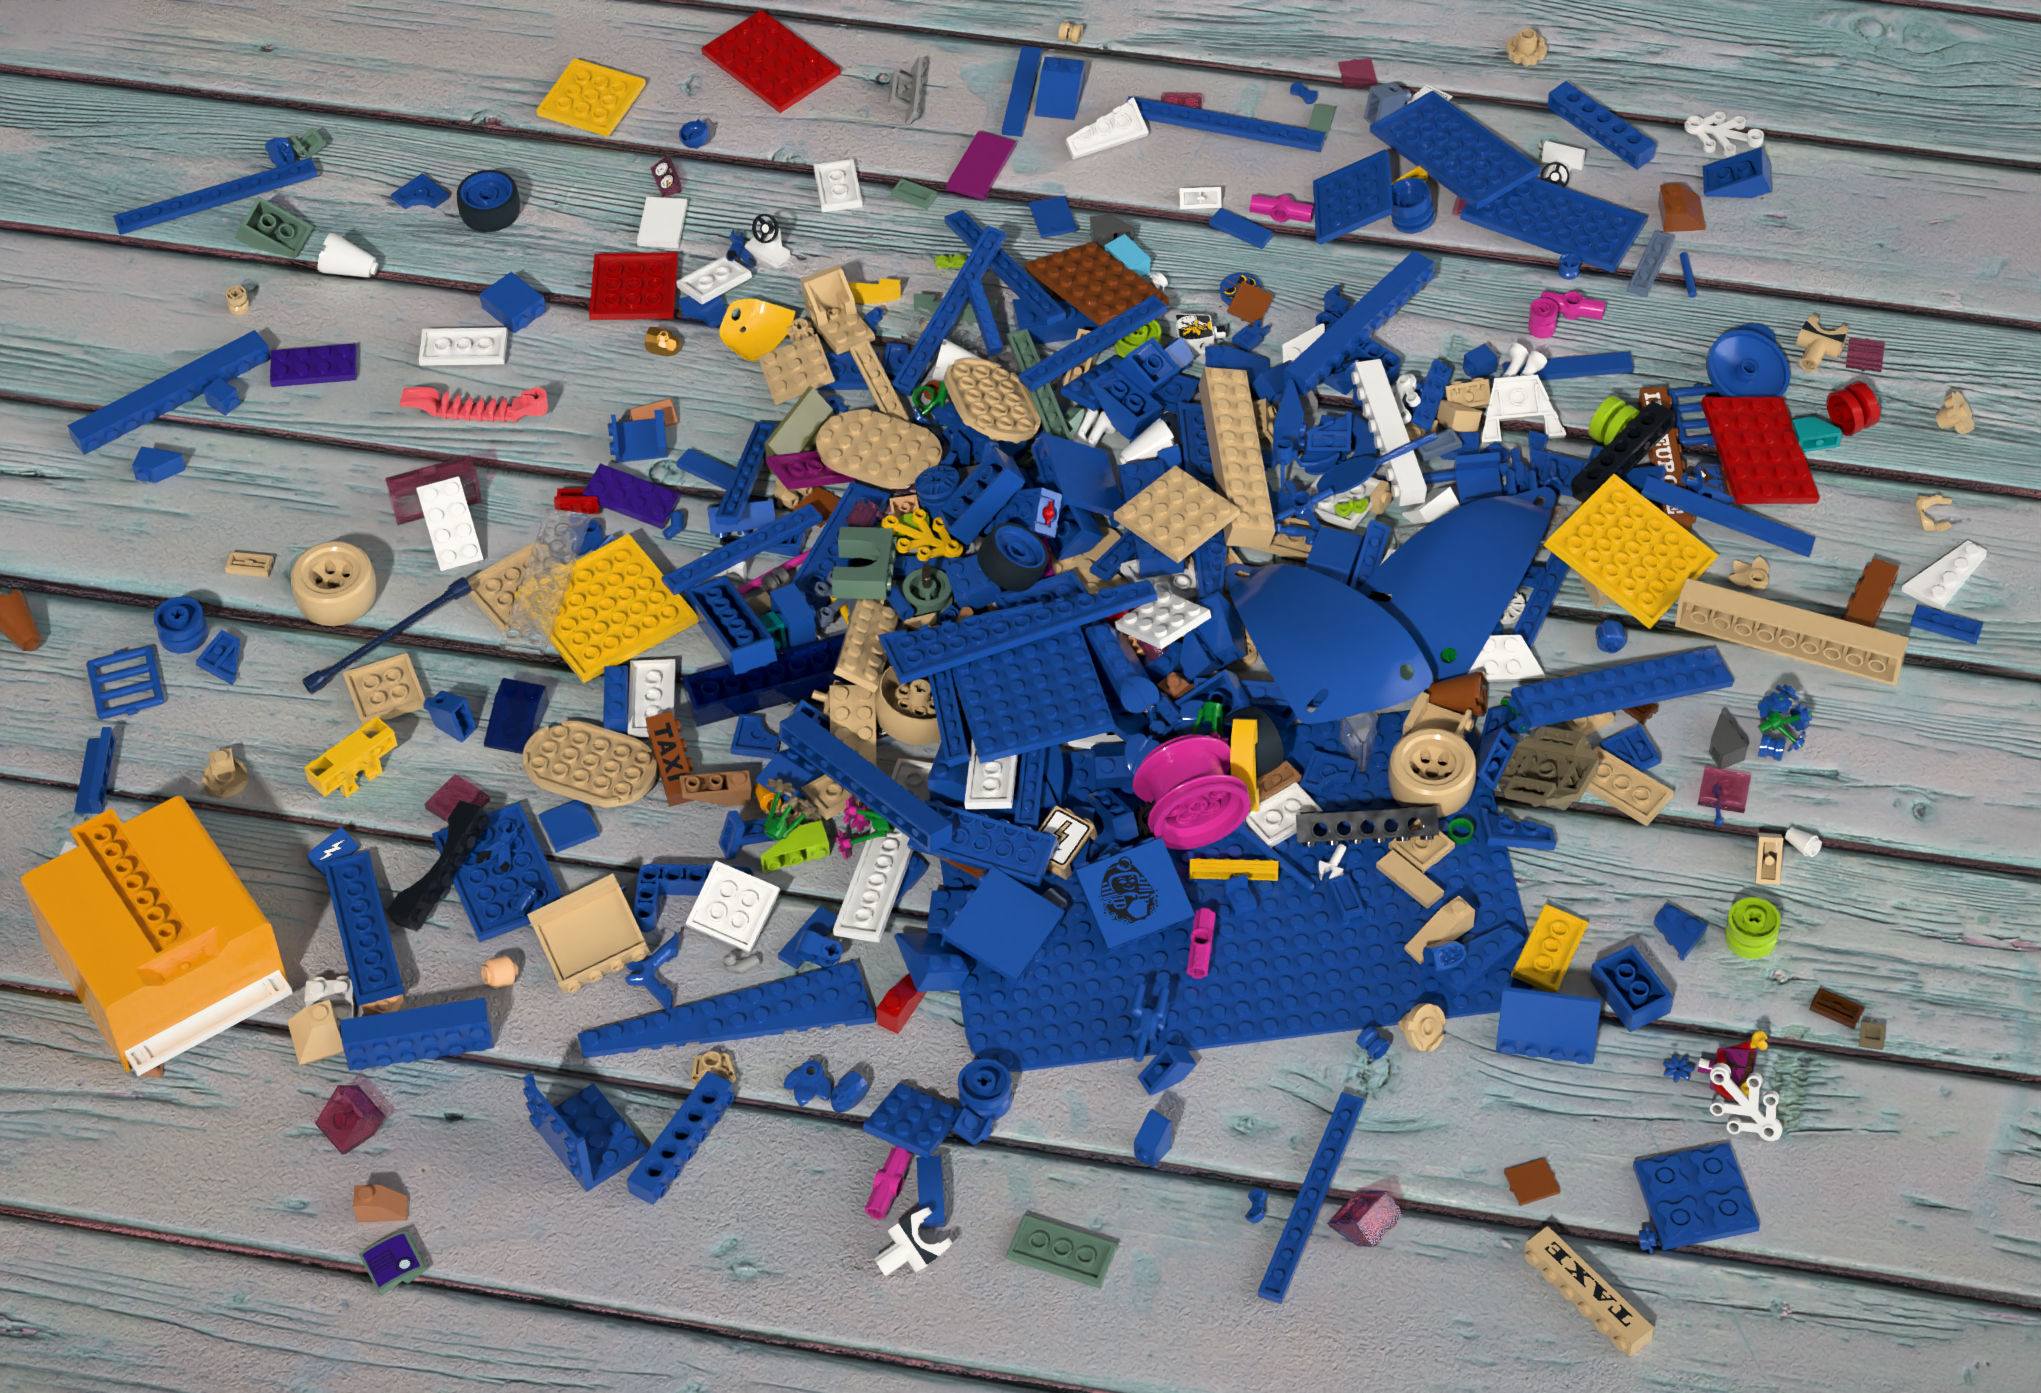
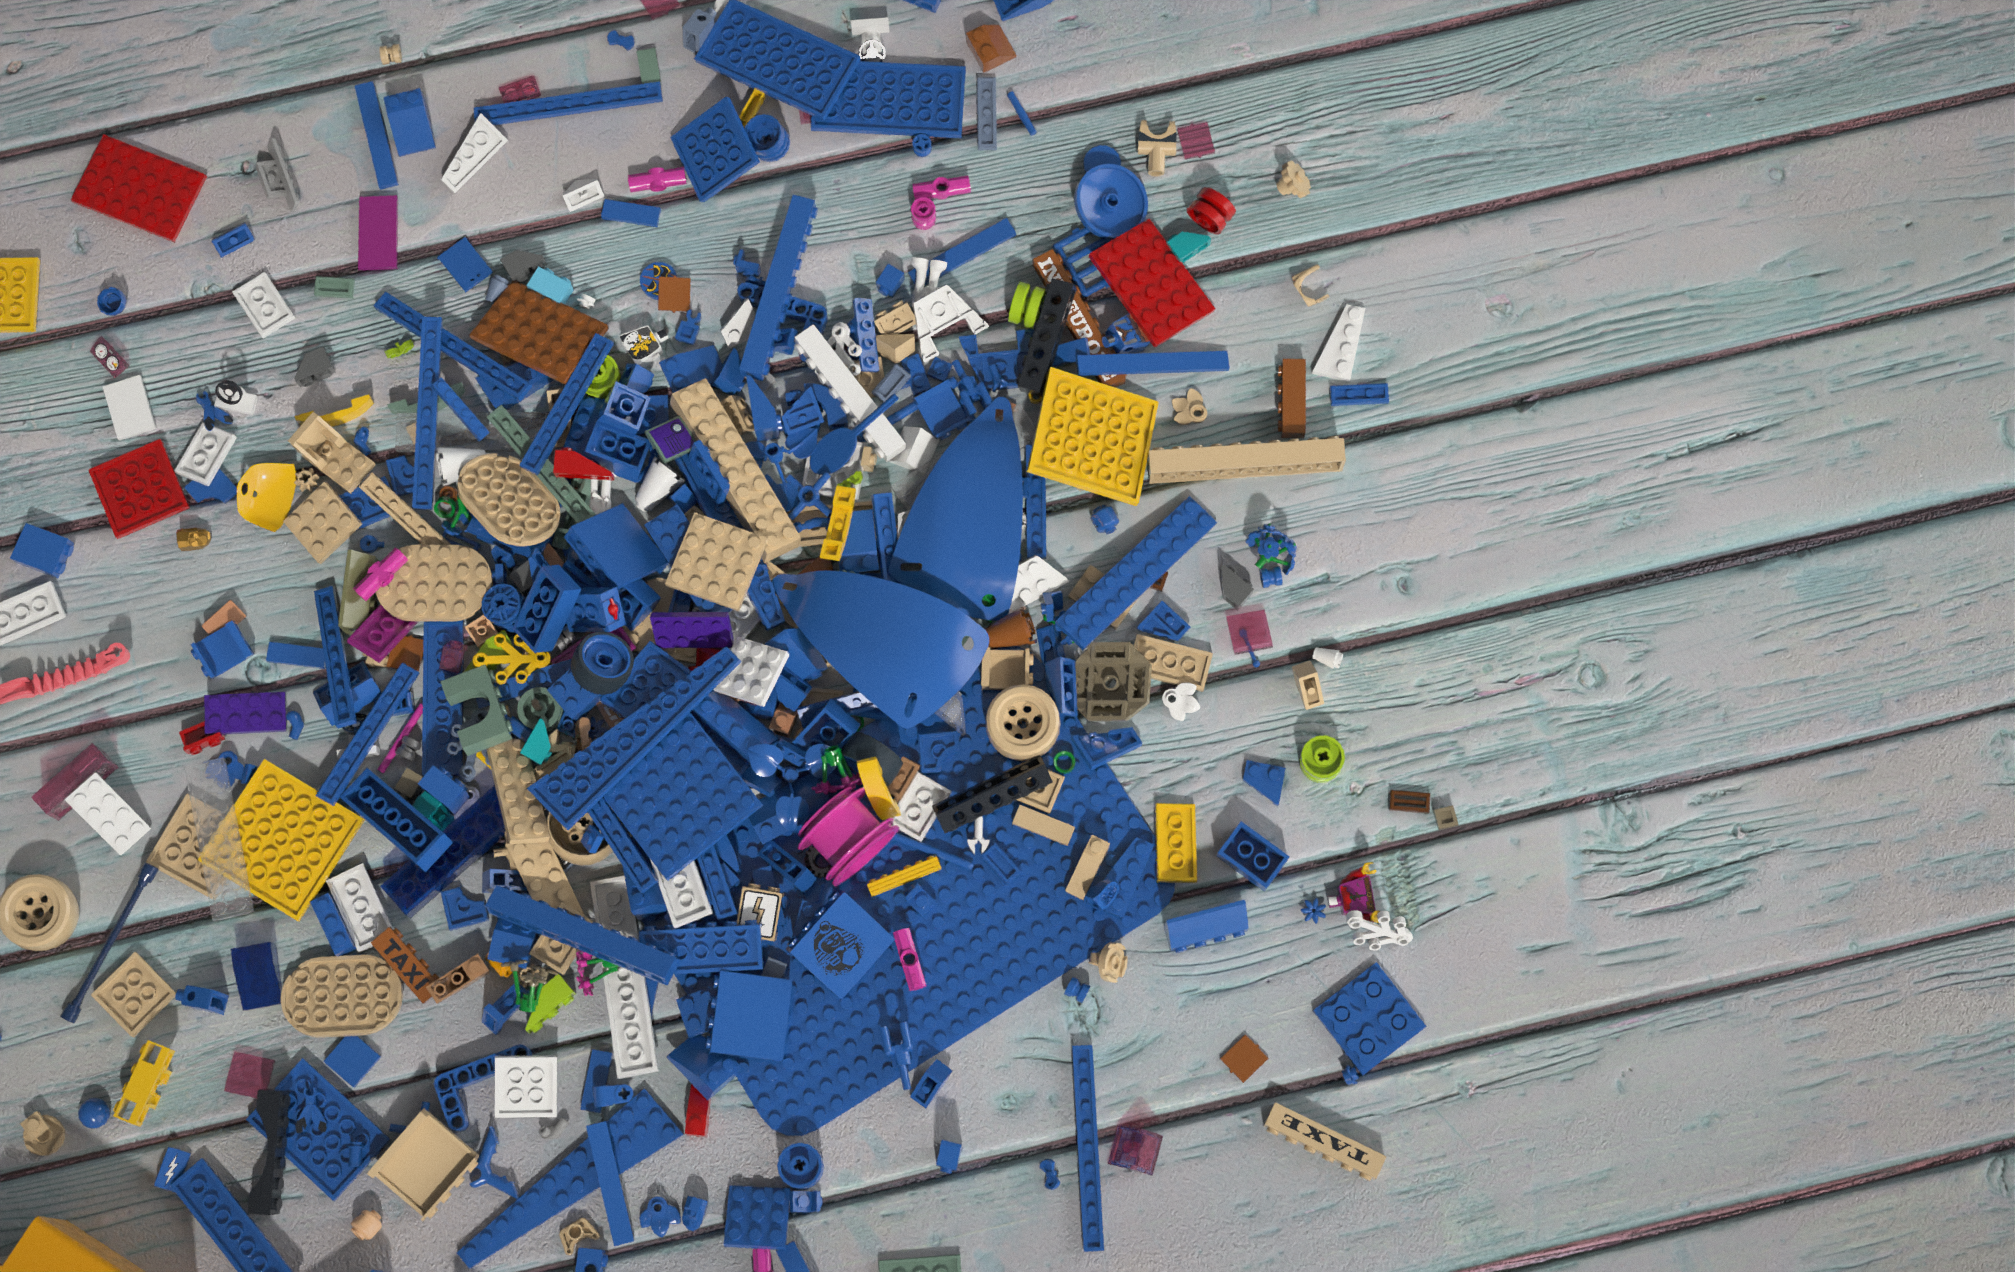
camera: 25 degrees left, 25 degrees up
(285, 775) = (94, 1113): none -> blue hair
(772, 1029) = (610, 1183): none -> blue tile
(830, 417) = (380, 574): none -> dark pink piece
(837, 126) = (233, 239): none -> blue slope
(858, 246) = (313, 367): none -> dark grey slope
(908, 610) = (538, 744): none -> teal slope
(920, 704) = (592, 839): none -> blue plate
(1074, 392) = (574, 465): none -> red slope
(1075, 239) = (496, 288): none -> sand blue cone
(1115, 565) = (692, 629): none -> dark purple plate
(1184, 409) = (671, 439): none -> slope
(1207, 443) = (708, 473): none -> blue plate
(1324, 531) = (839, 523): none -> yellow slope
(1512, 682) = (1051, 602): none -> blue bracket
(1619, 825) = (1184, 700): none -> white plate

